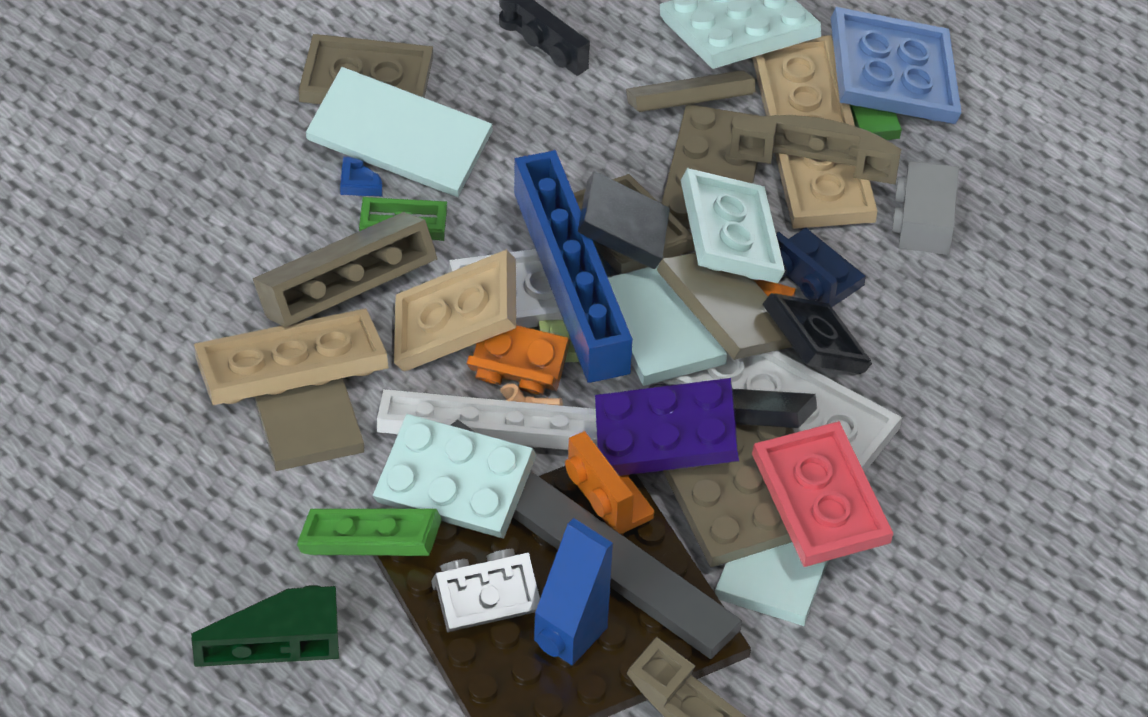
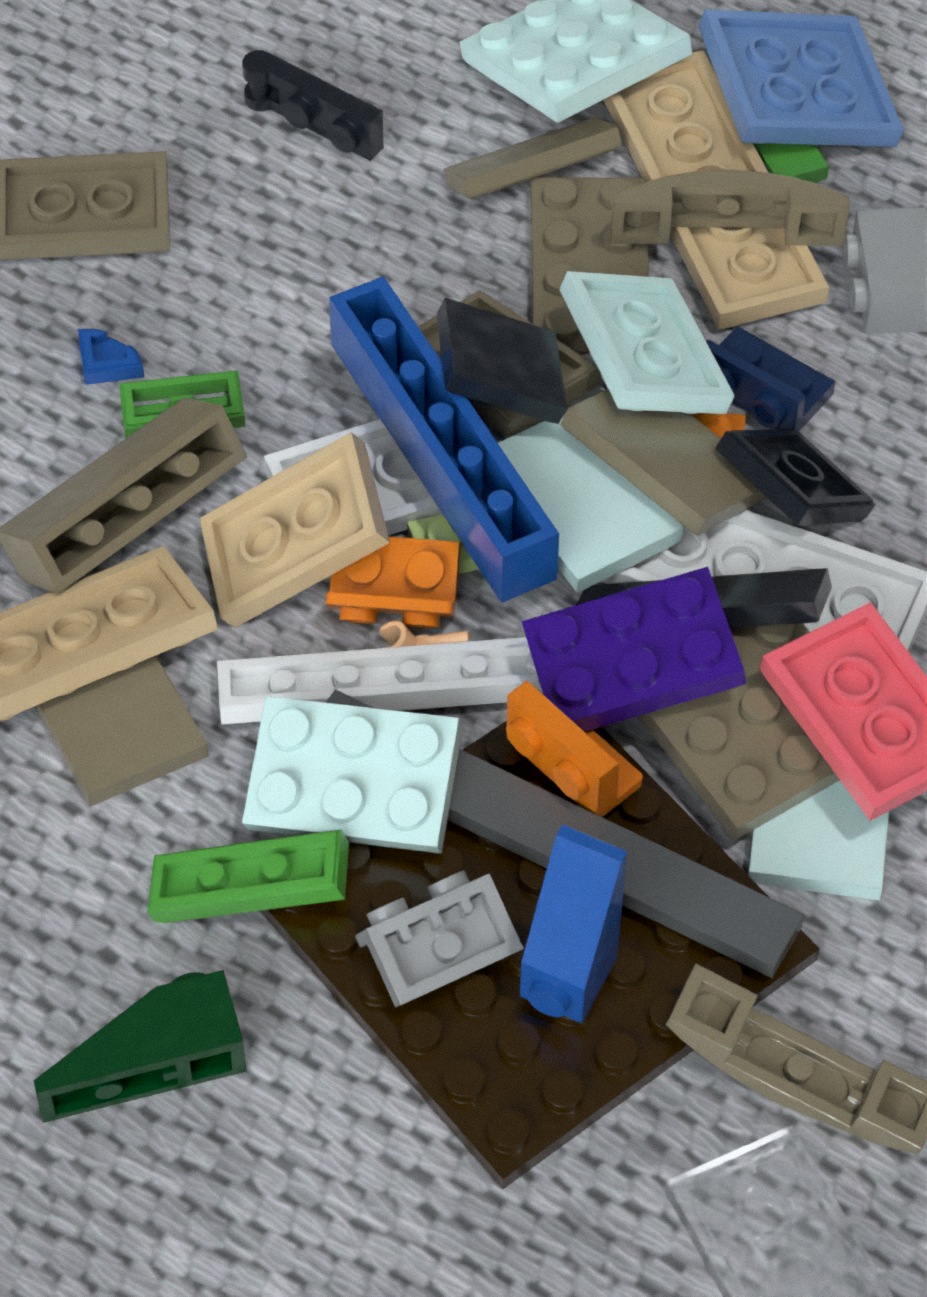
camera: 10 degrees left, 5 degrees up
(399, 131) = (148, 281): light aqua tile -> none

